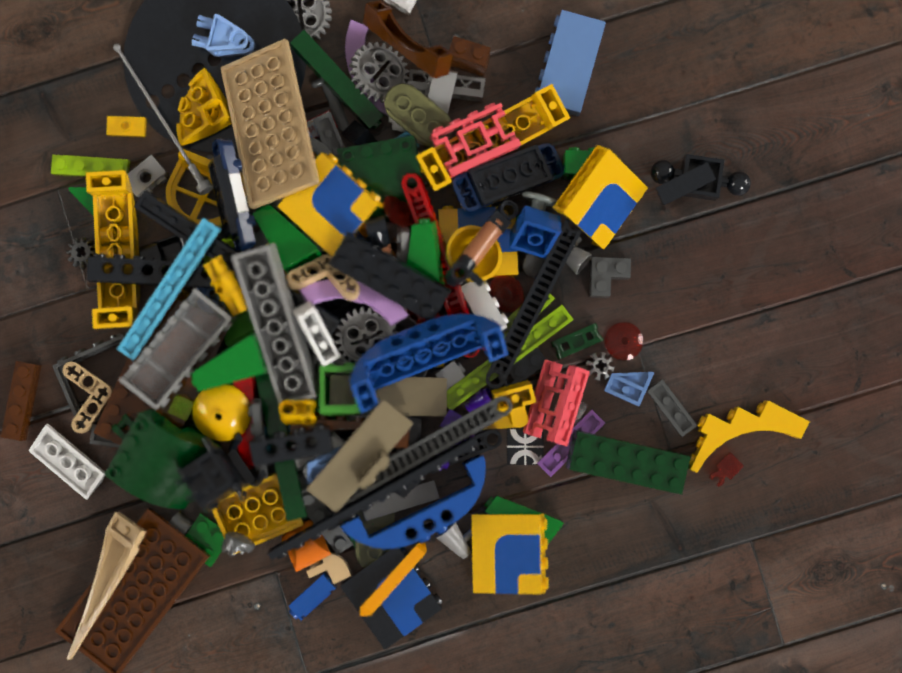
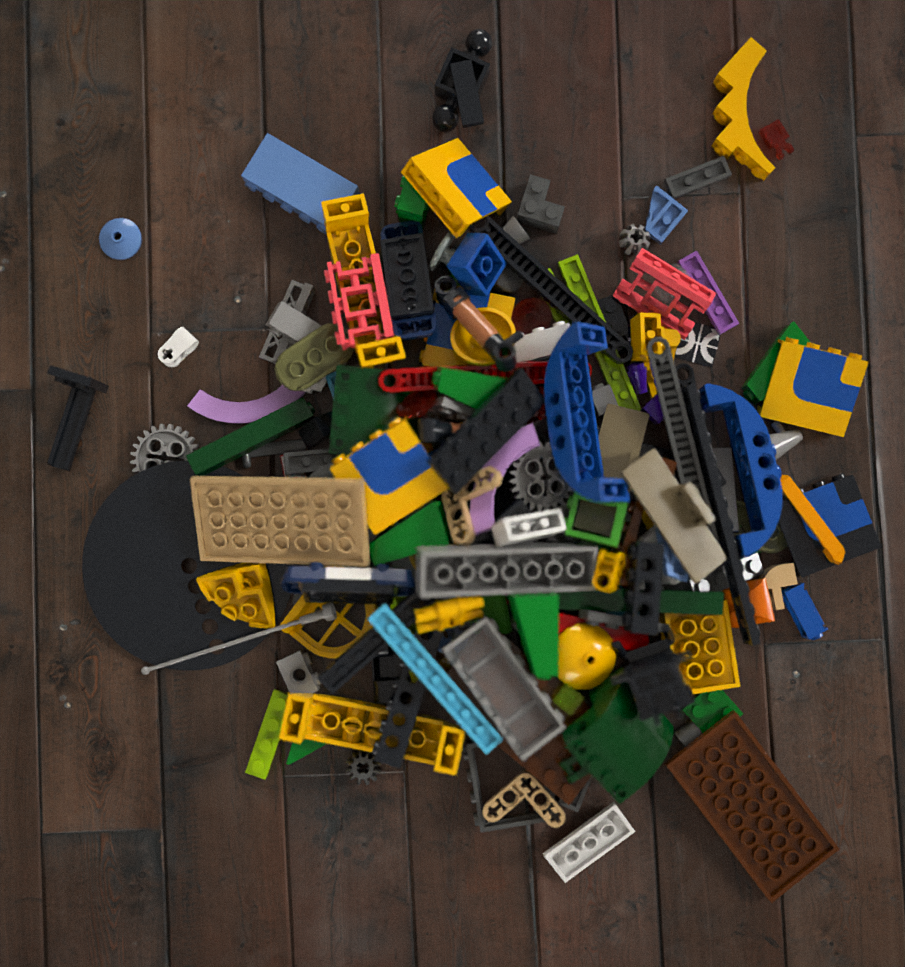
camera: 75 degrees left, 0 degrees up
(21, 401) = (509, 877): reddish brown brick -> none
(117, 553) = (708, 811): tan plate -> none
(126, 126) = (236, 682): yellow plate -> none
(223, 37) = (169, 547): light blue piece -> none
(237, 542) = (732, 676): dark grey hair -> none
(366, 60) = (237, 392): light grey gear -> none
(381, 21) = (199, 371): reddish brown arch -> none
(469, 56) = (264, 286): reddish brown brick -> none
(577, 341) = (601, 257): dark green plate -> none
(617, 348) = (608, 218): clear red dish -> none
(628, 462) = (746, 236): dark green brick -> none

